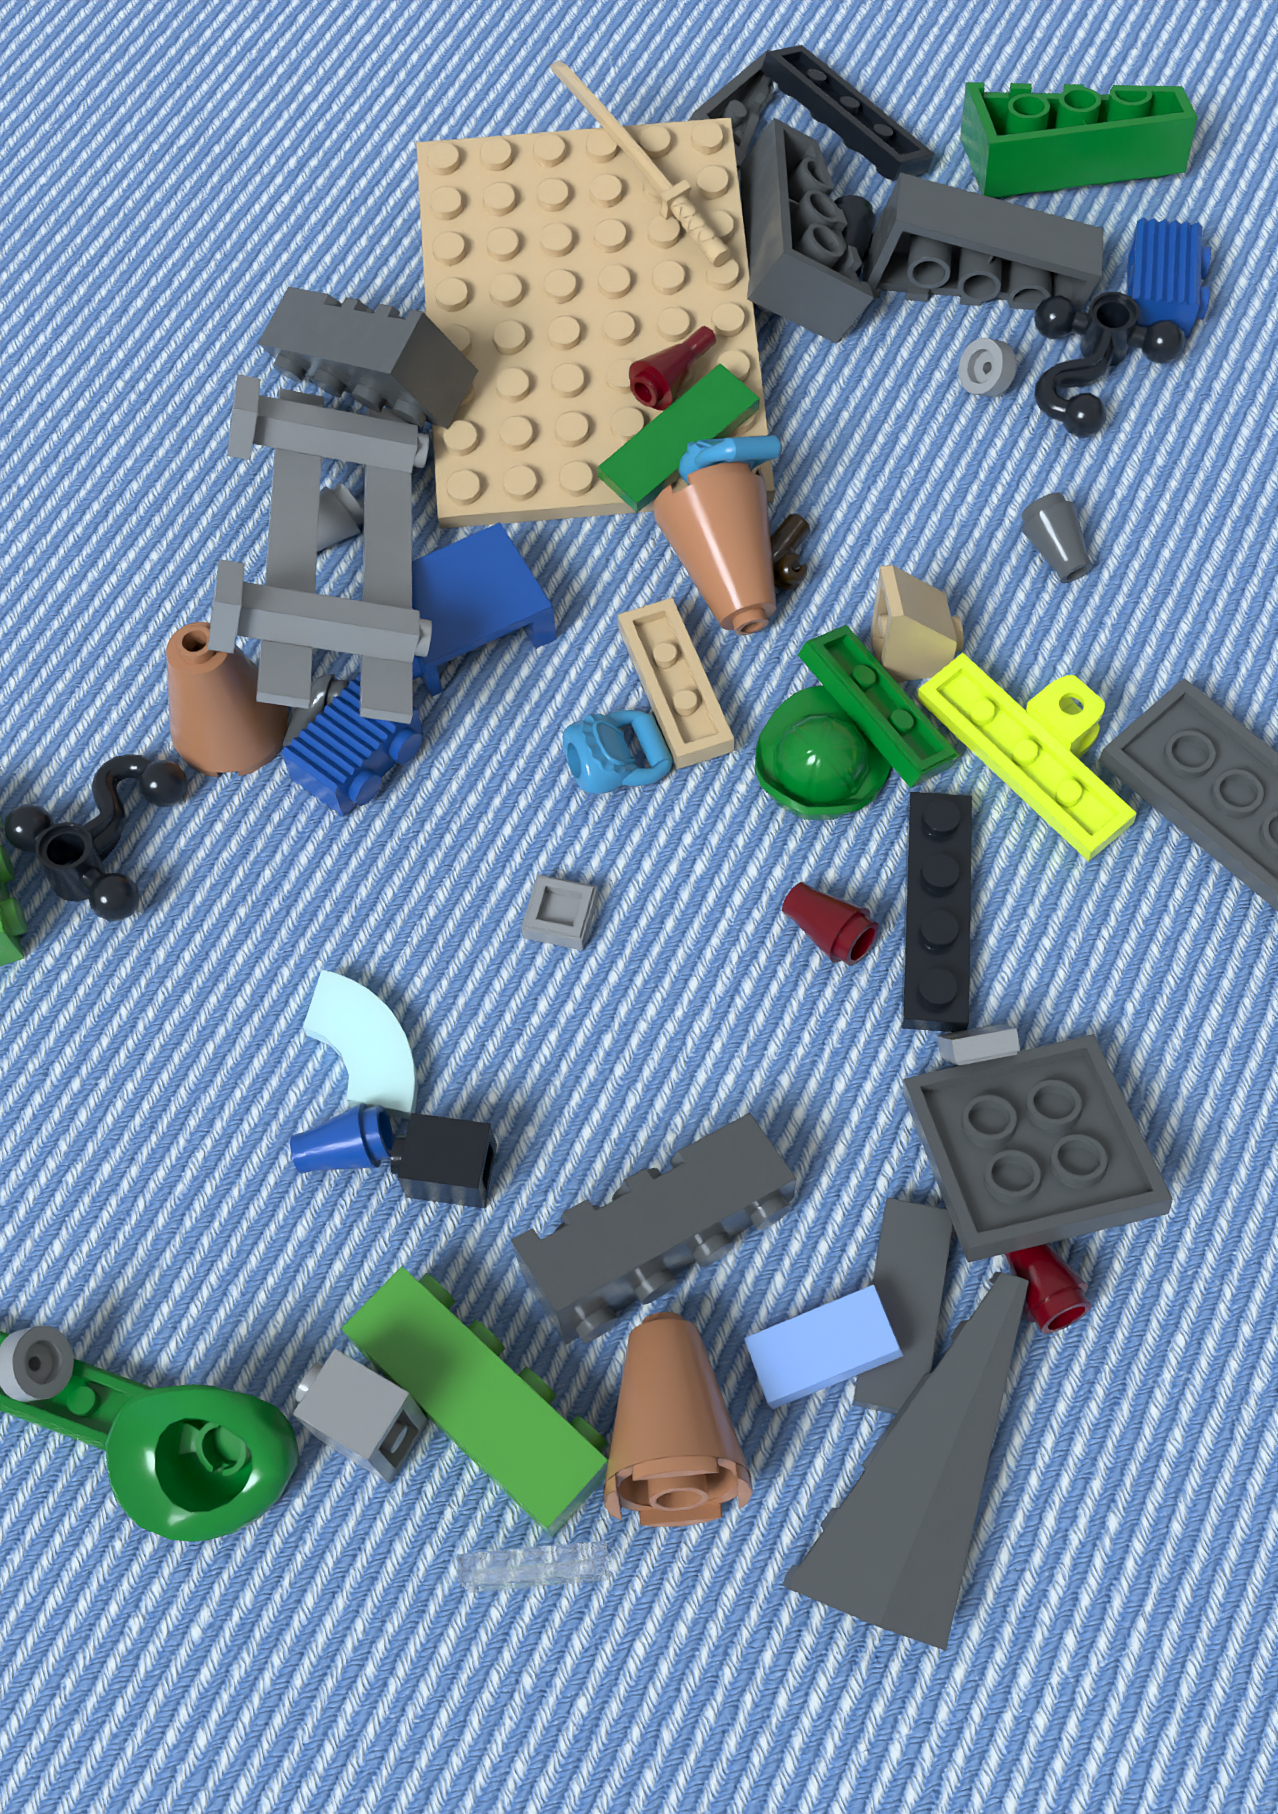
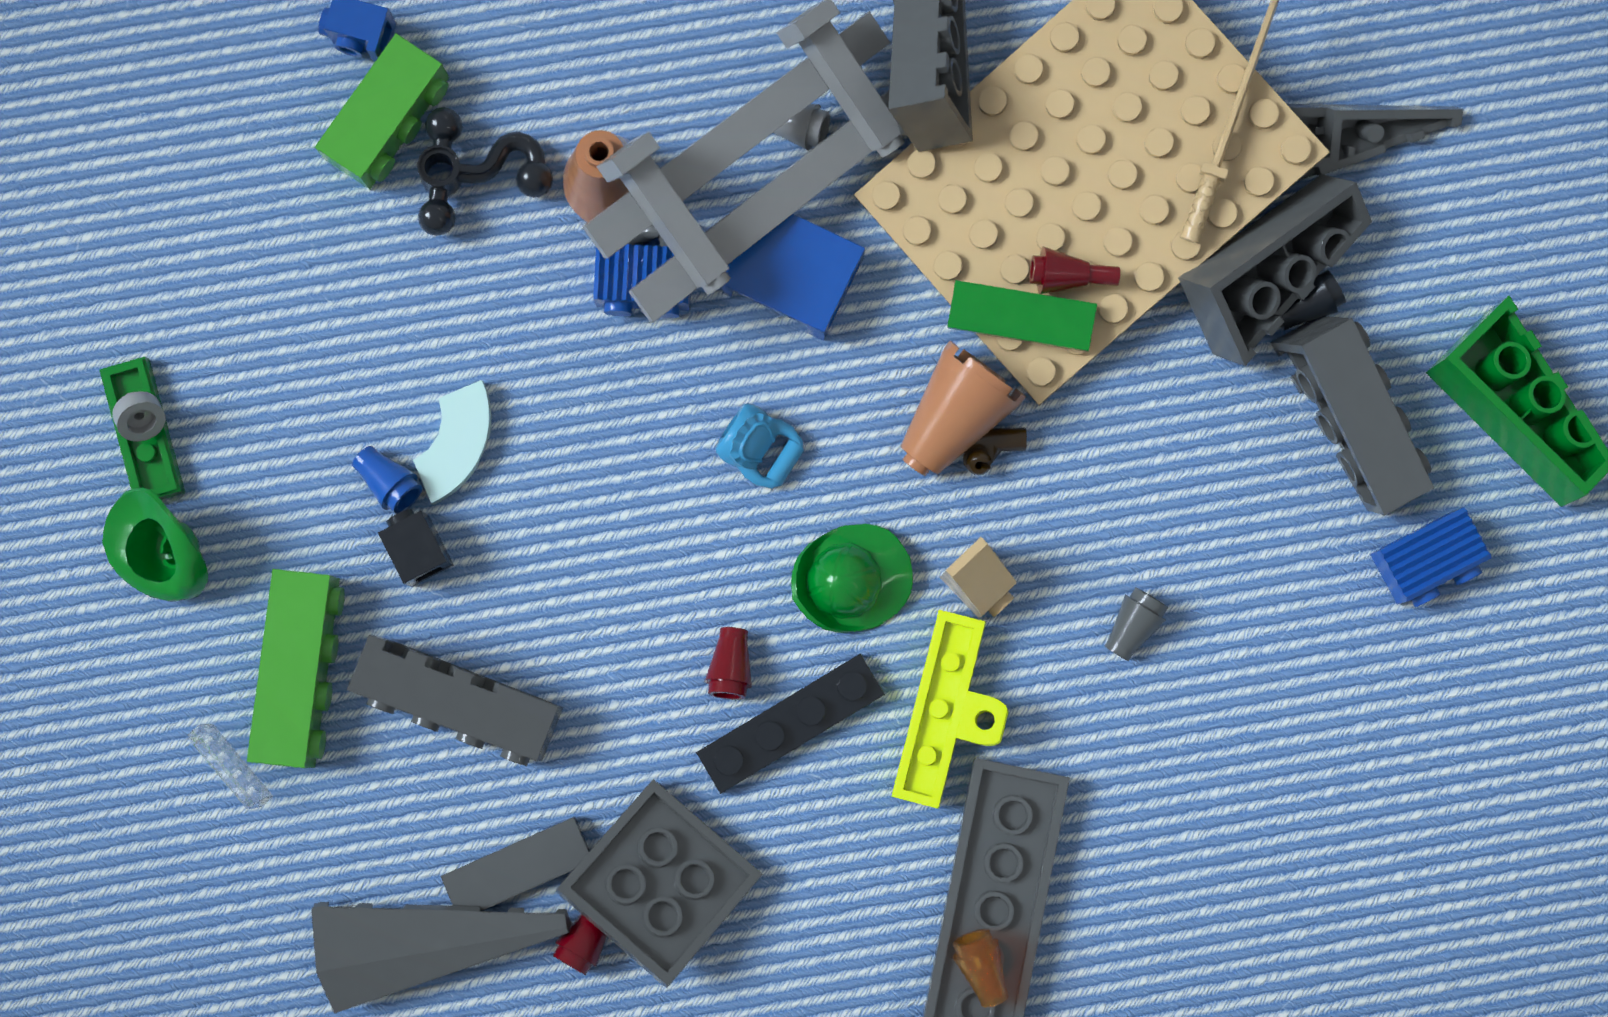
camera: 50 degrees right, 20 degrees up
(359, 1414) = (231, 615): light grey brick -> none
(560, 912) = (625, 492): light grey tile -> none
(672, 1431) = (352, 786): nougat cone -> none
(675, 683) = (836, 446): tan plate -> none
(709, 452) = (1016, 366): dark azure piece -> none
(823, 1347) = (457, 839): light blue tile -> none
(847, 112) = (1436, 215): black plate -> none
(878, 705) = (909, 591): green tile -> none
(979, 1044) = (707, 808): light grey tile -> none
(987, 367) = (1252, 482): light grey tile -> none
(1105, 341) = (1334, 503): black piece -> none

